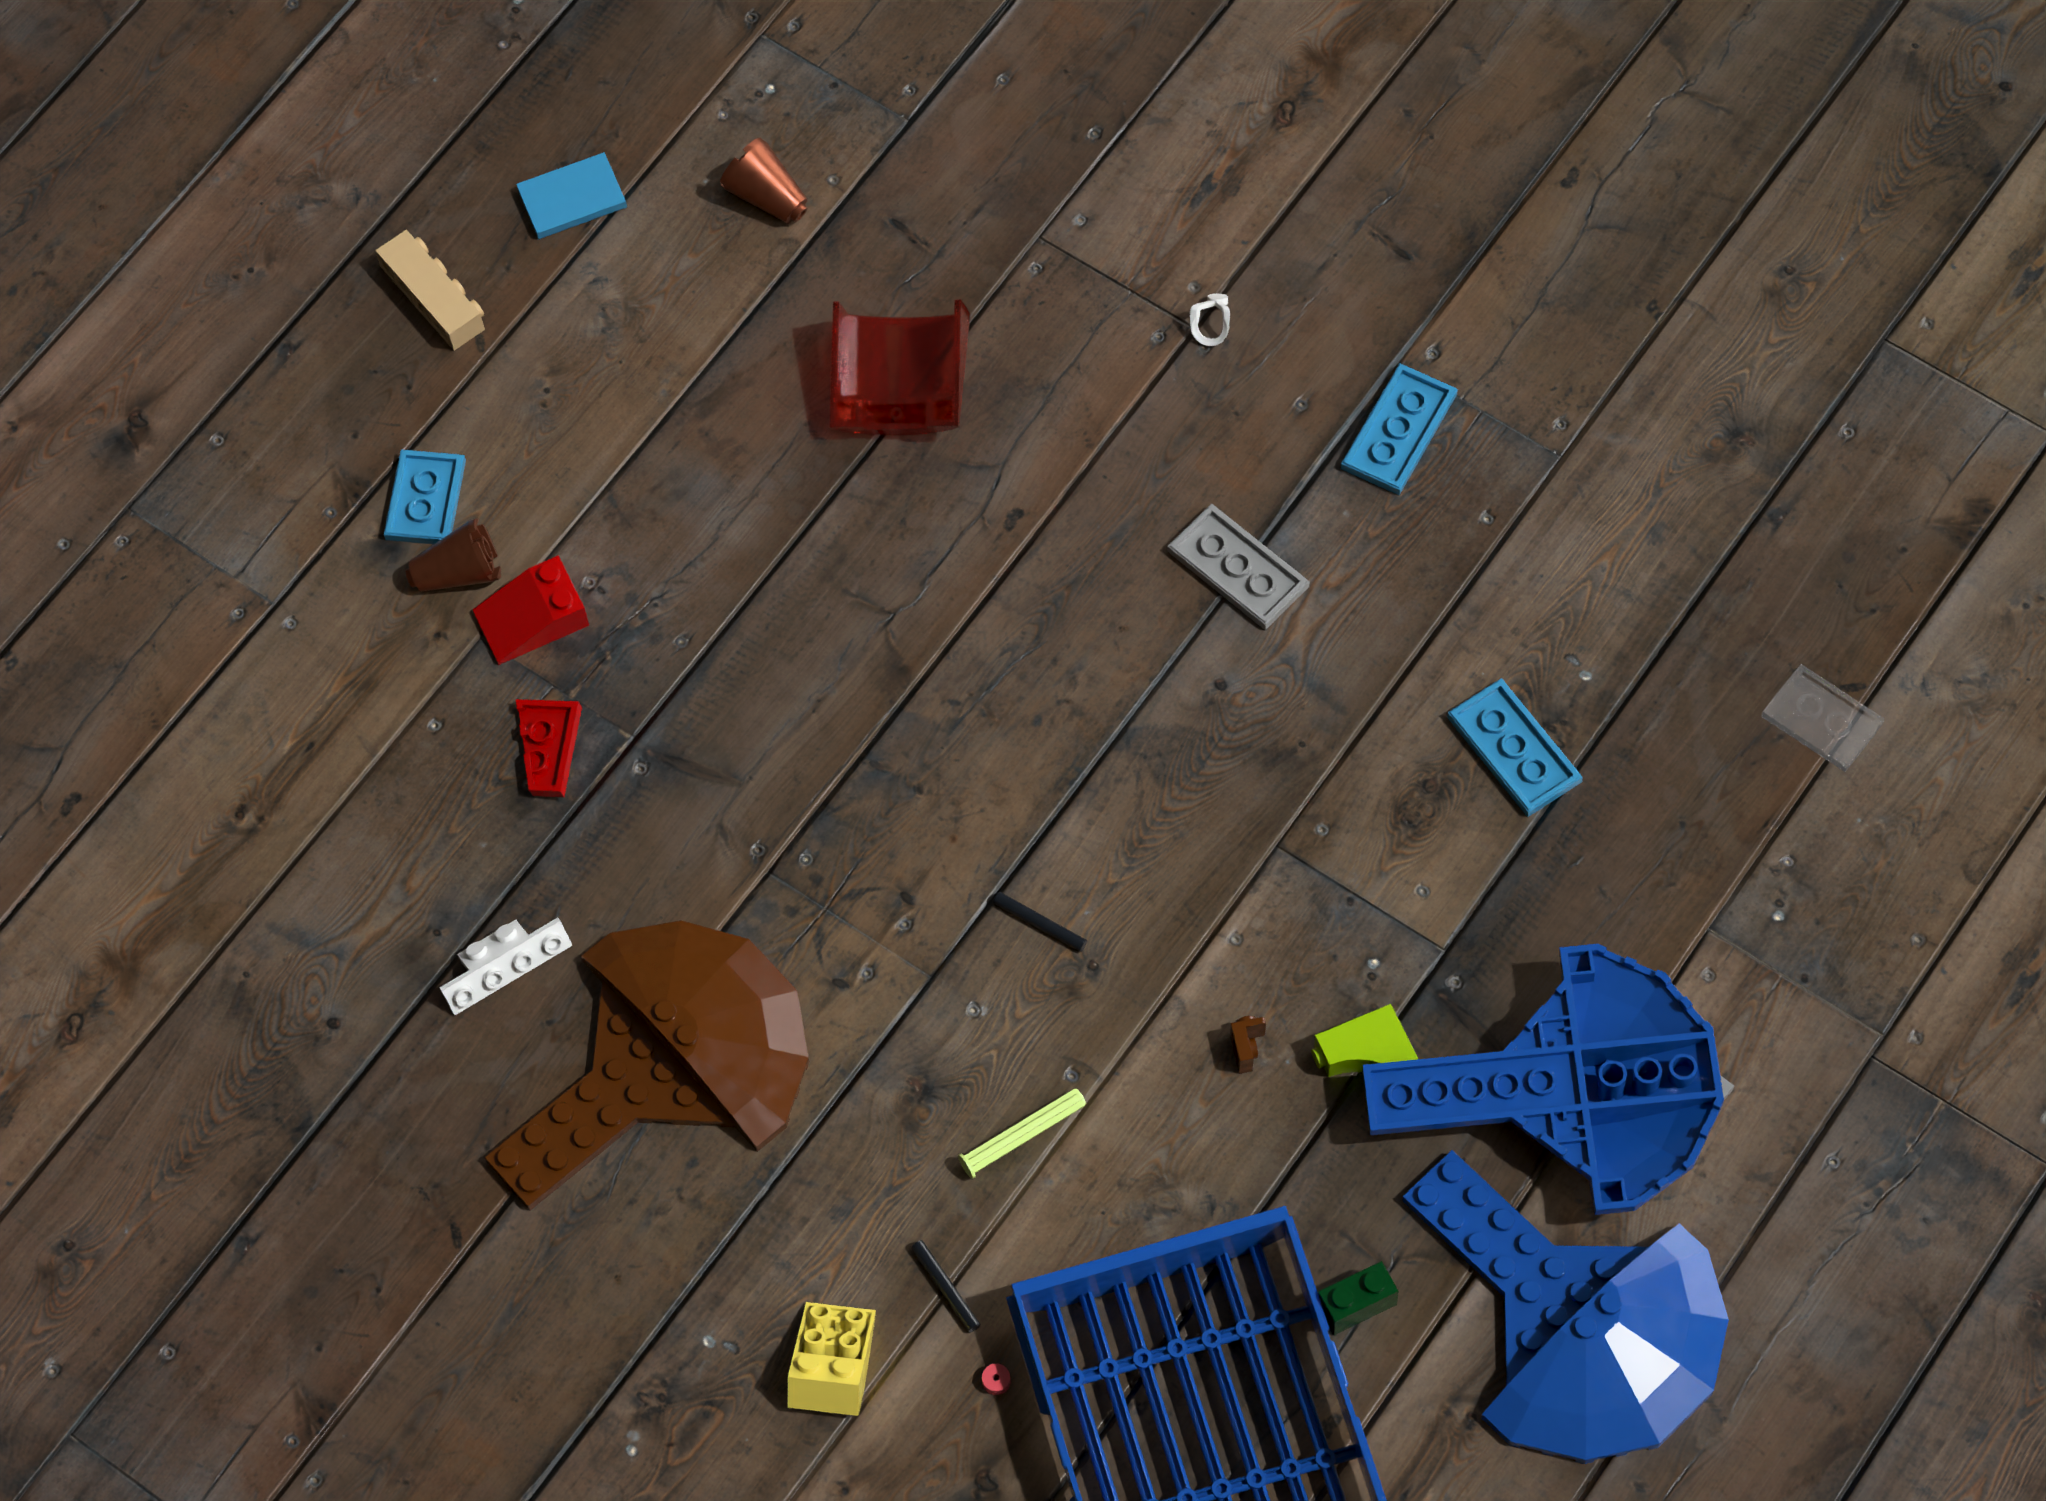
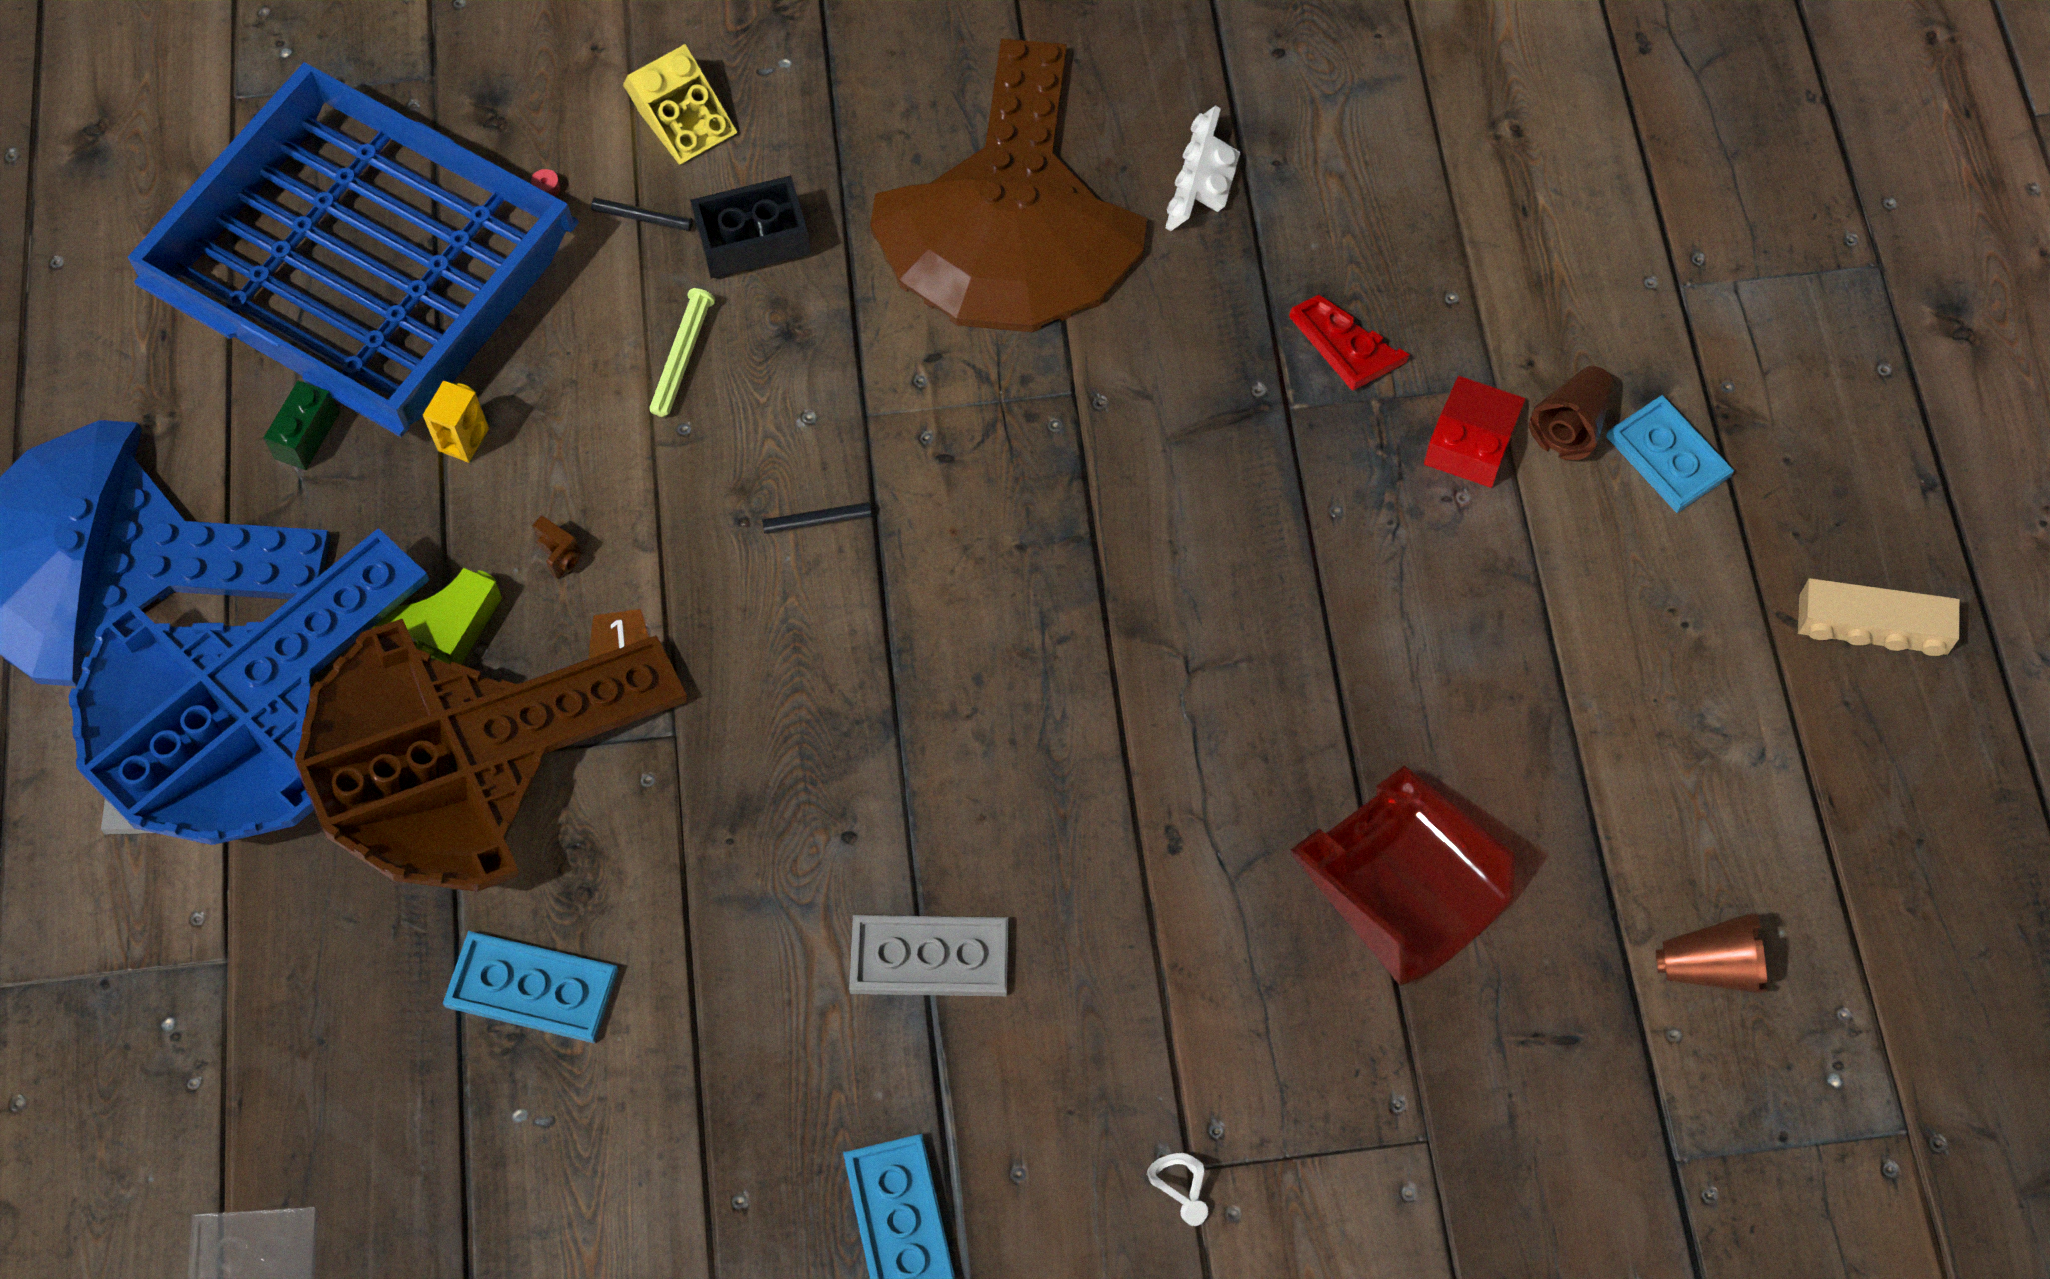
camera: 135 degrees right, 0 degrees up
(571, 195) = (1874, 811): dark azure tile -> none
(879, 1184) = (751, 226): none -> black brick
(1240, 1190) = (456, 420): none -> yellow brick
(1255, 950) = (615, 631): none -> clear orange sticker
(1461, 924) = (432, 761): none -> reddish brown plate

